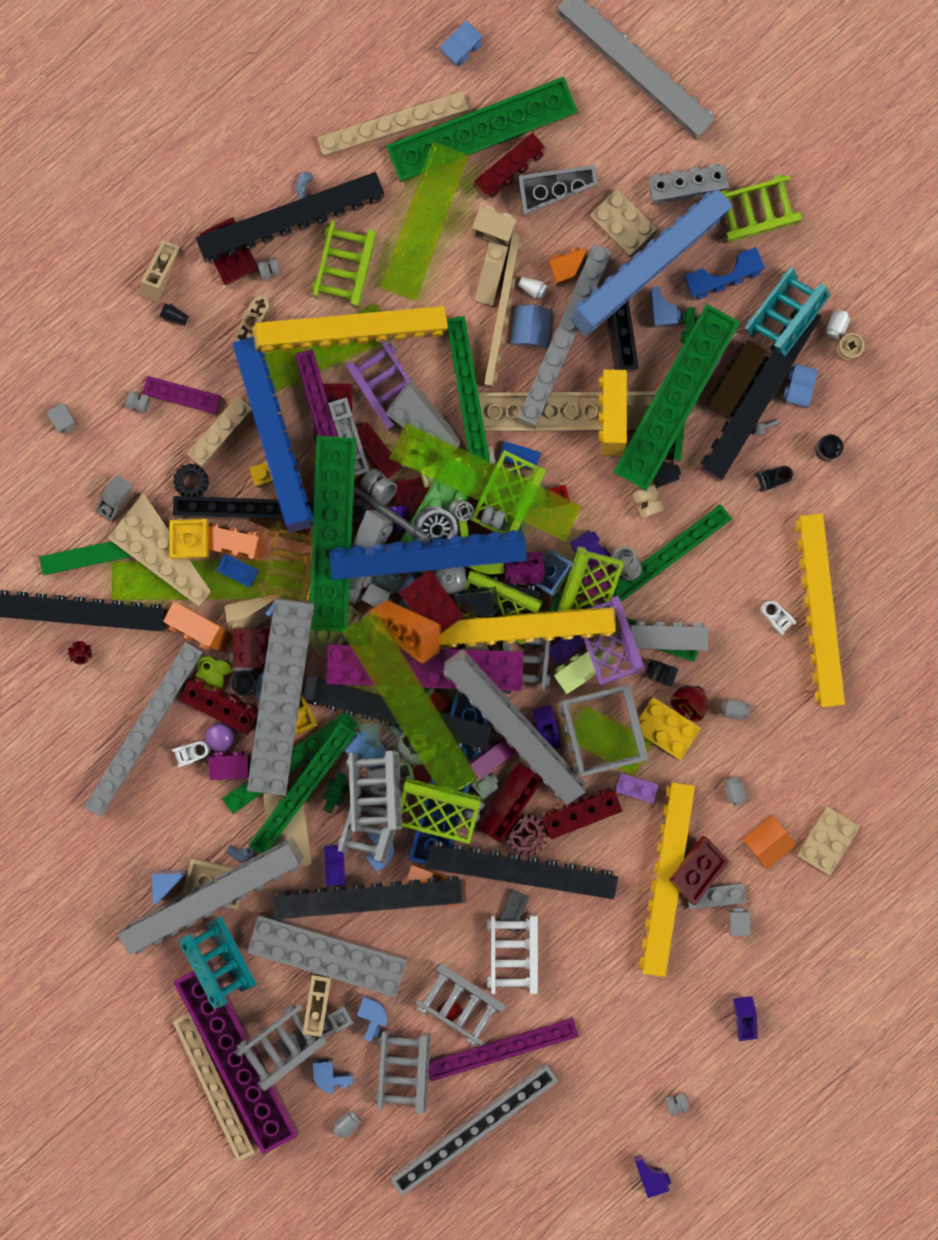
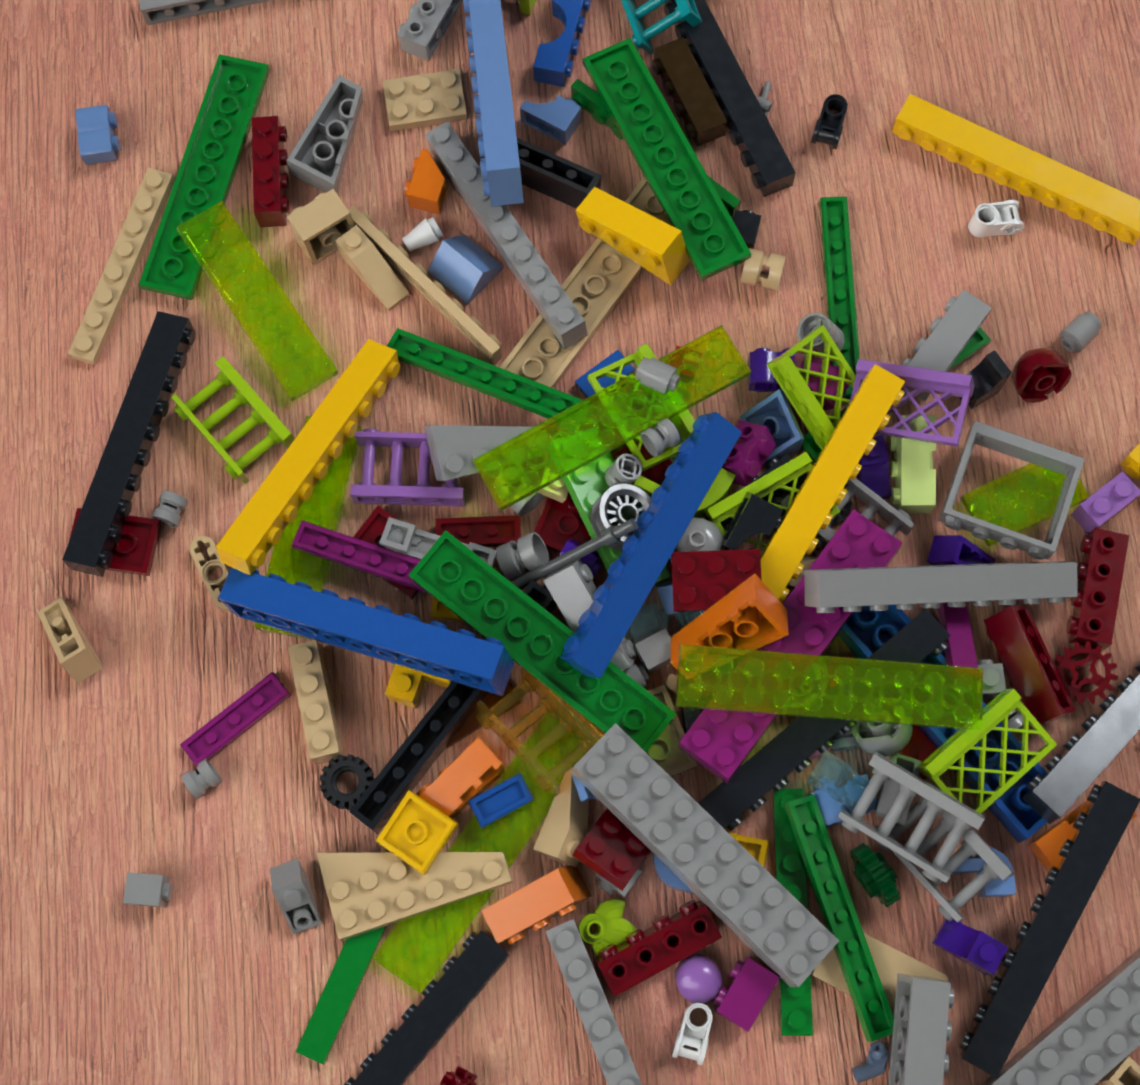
camera: 50 degrees left, 15 degrees down
(173, 314) = (133, 660): black cone -> none
(244, 683) = (651, 893): black wheel -> none
(301, 183) = (103, 405): sand blue arm -> none
(523, 492) = (657, 375): none -> light grey brick
(667, 728) = (1055, 421): yellow plate -> none
(800, 386) = (746, 33): medium blue brick -> none
(828, 447) = (837, 45): black wheel -> none

